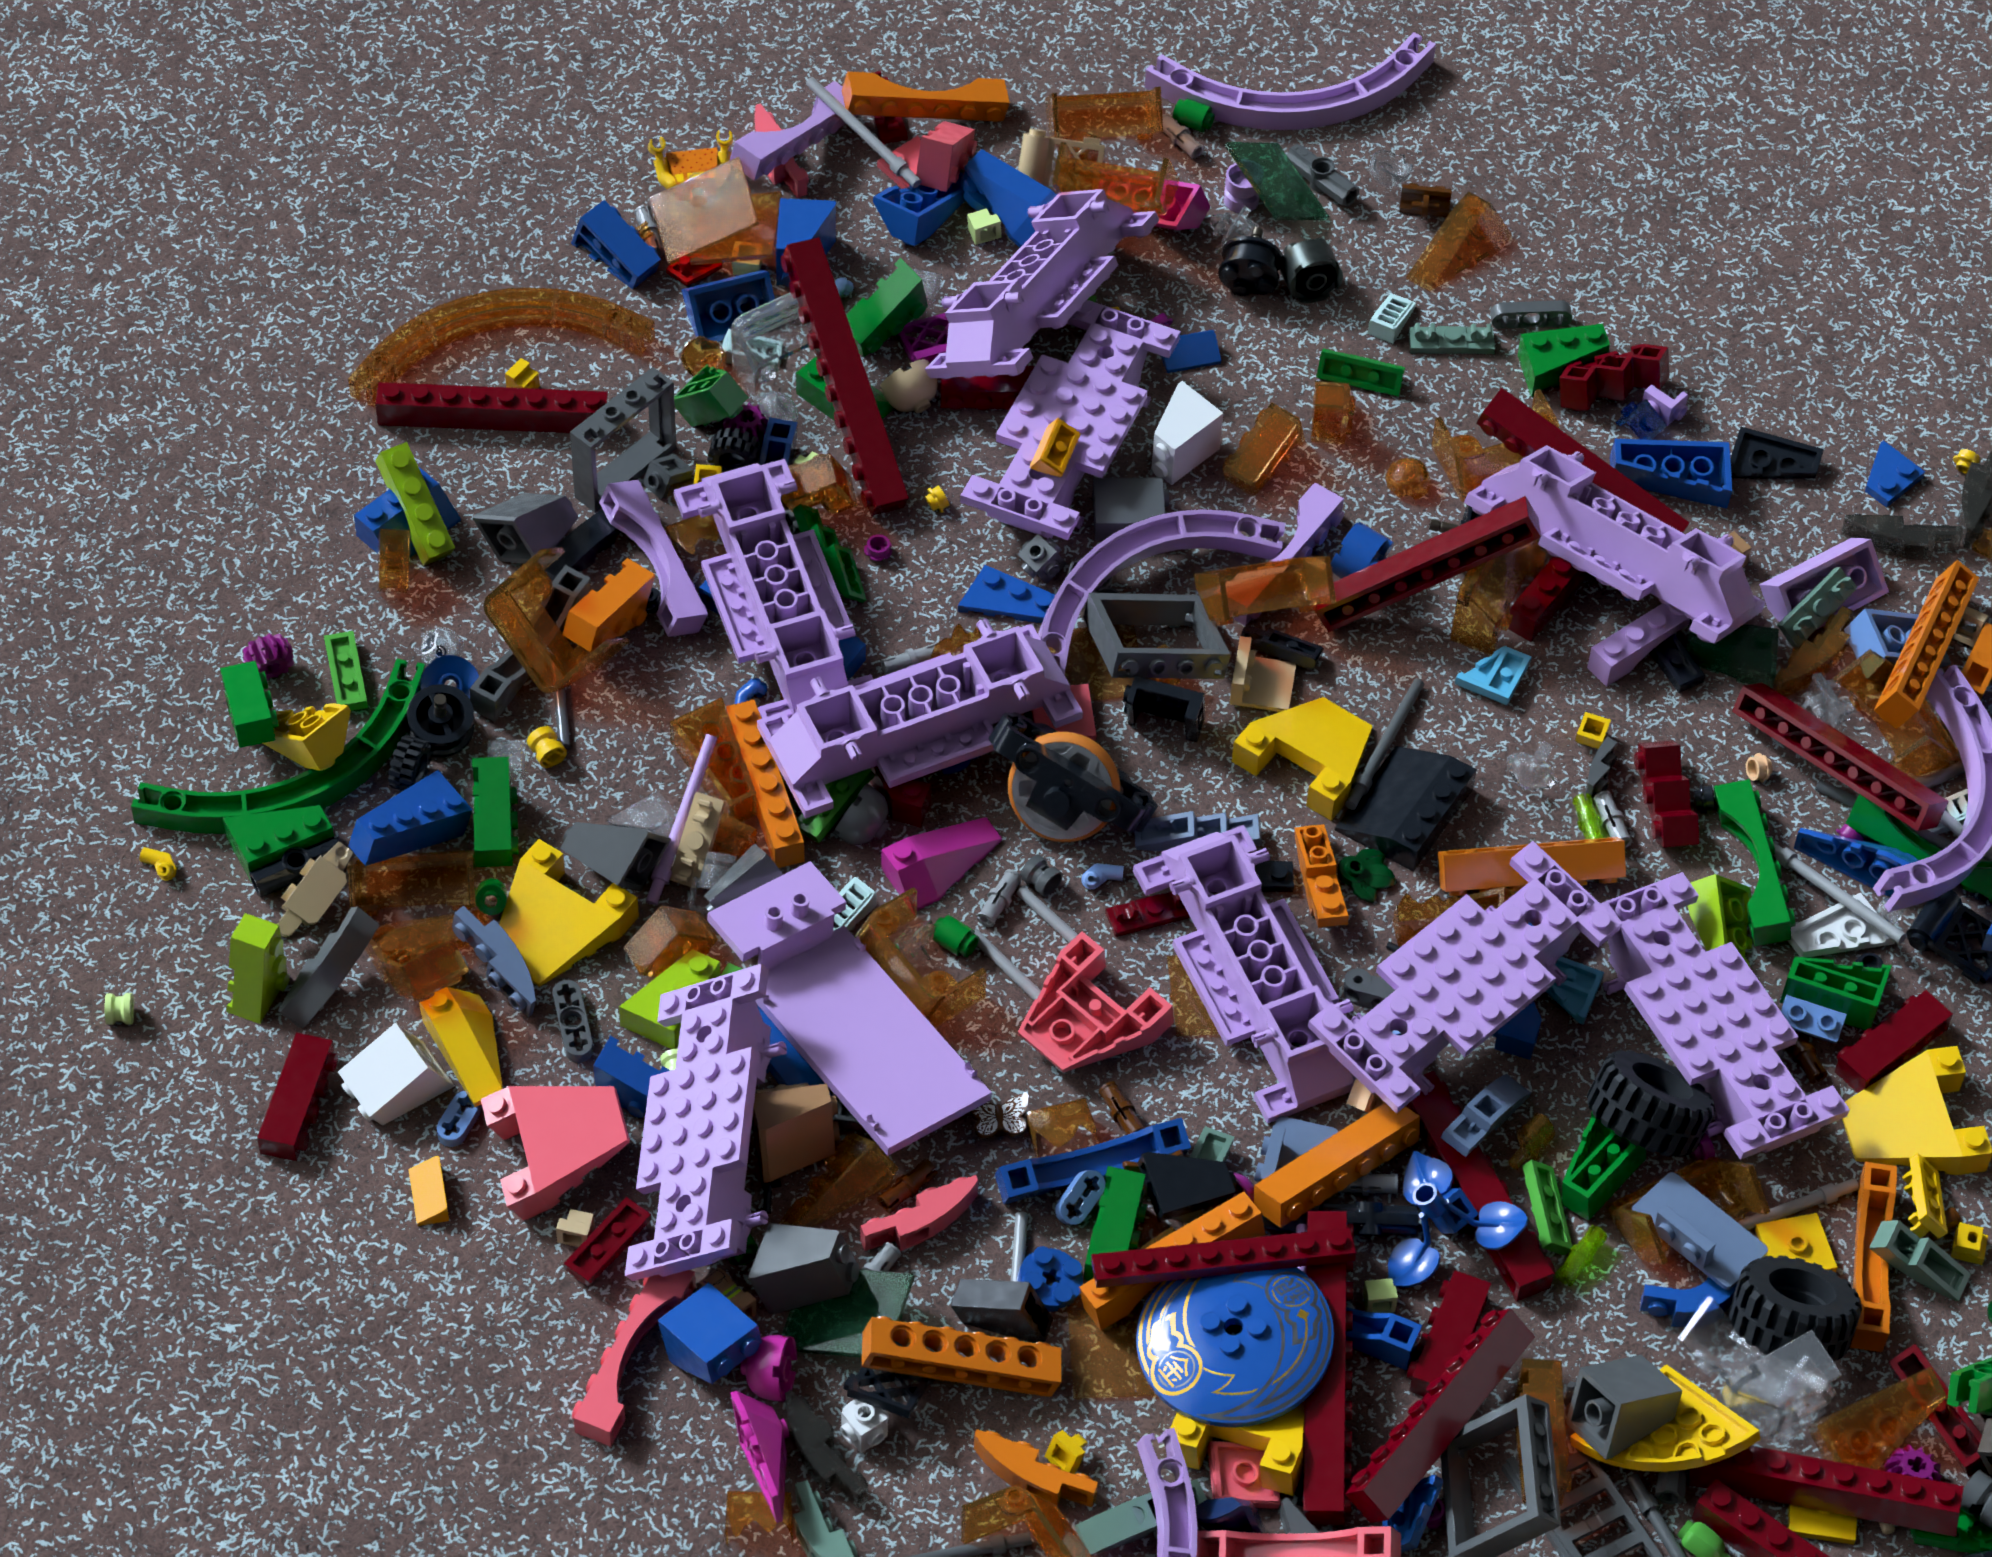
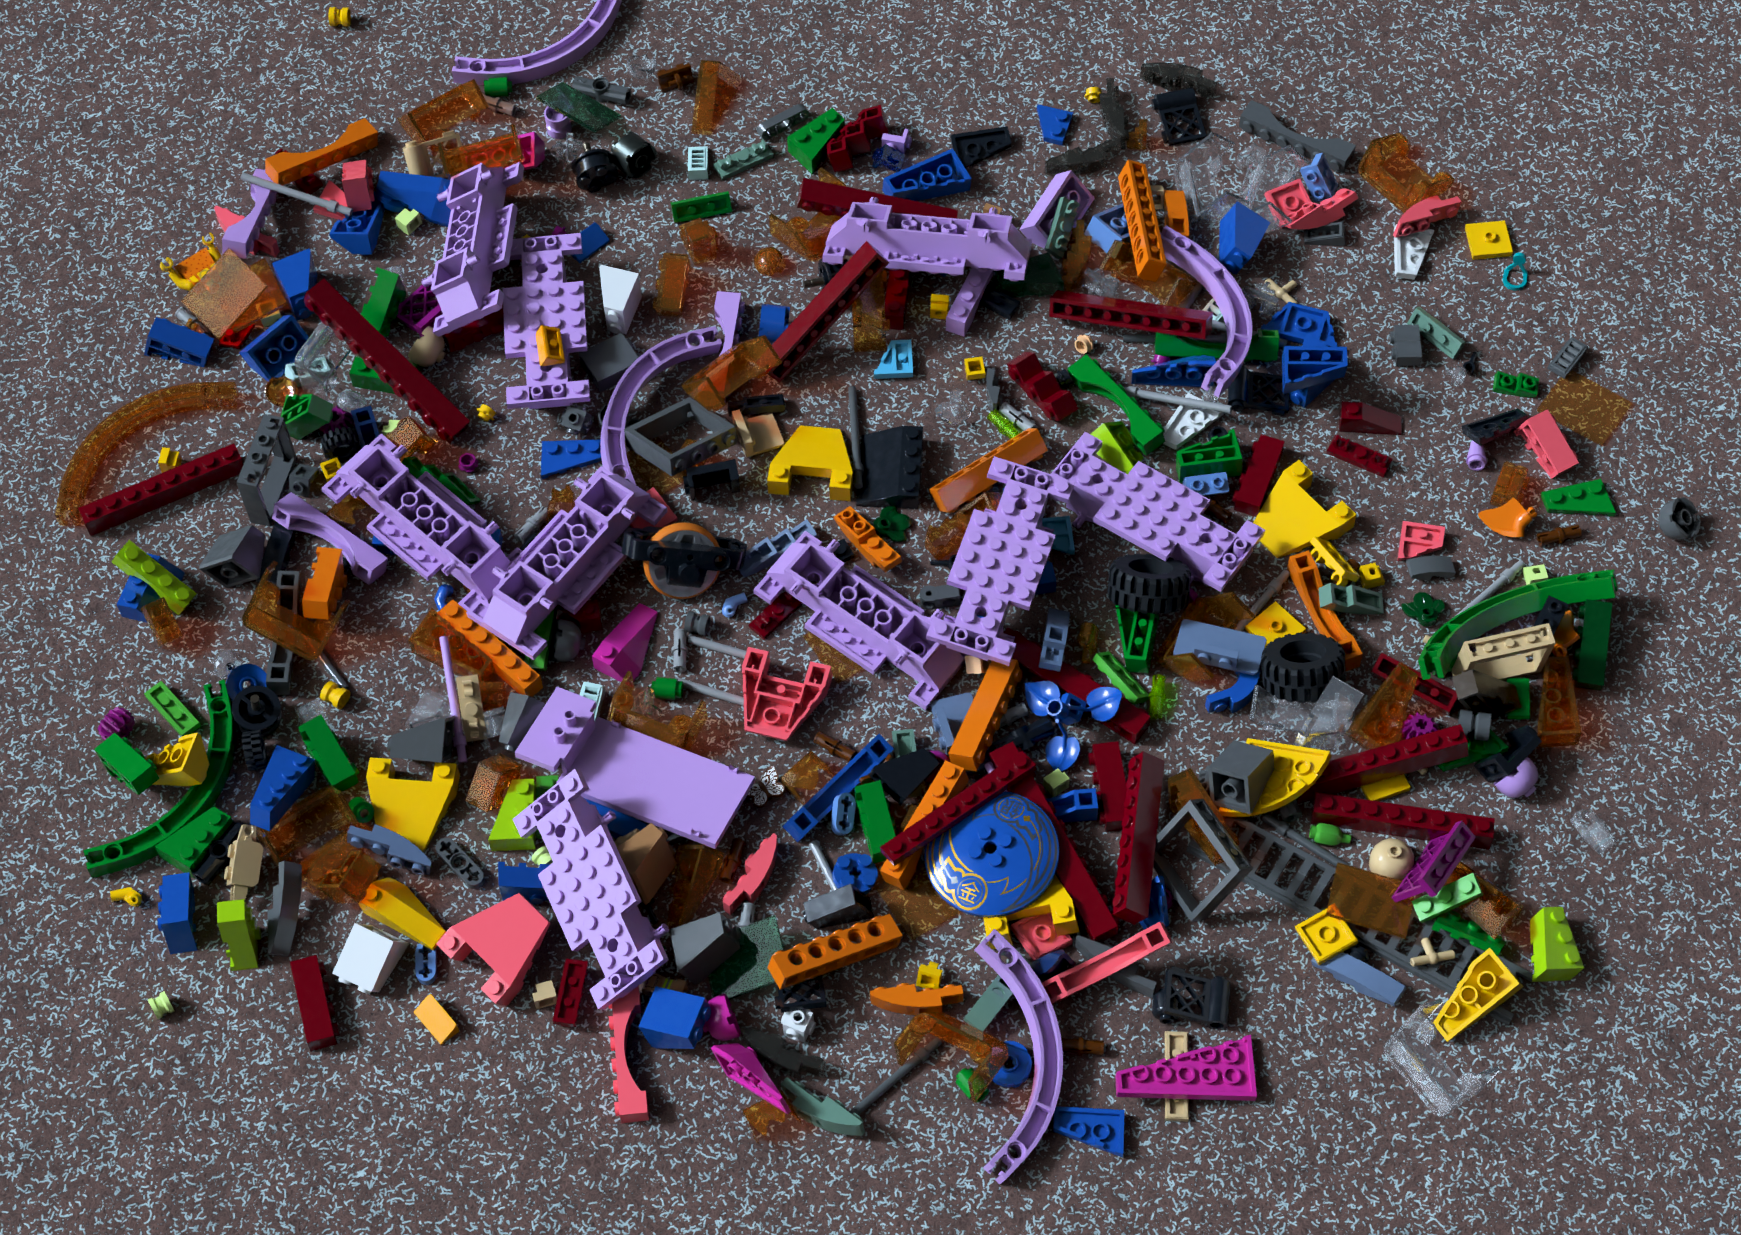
camera: 25 degrees left, 5 degrees up
(202, 908) = (177, 912): none -> blue wedge
(1593, 631) = (939, 306): none -> yellow piece

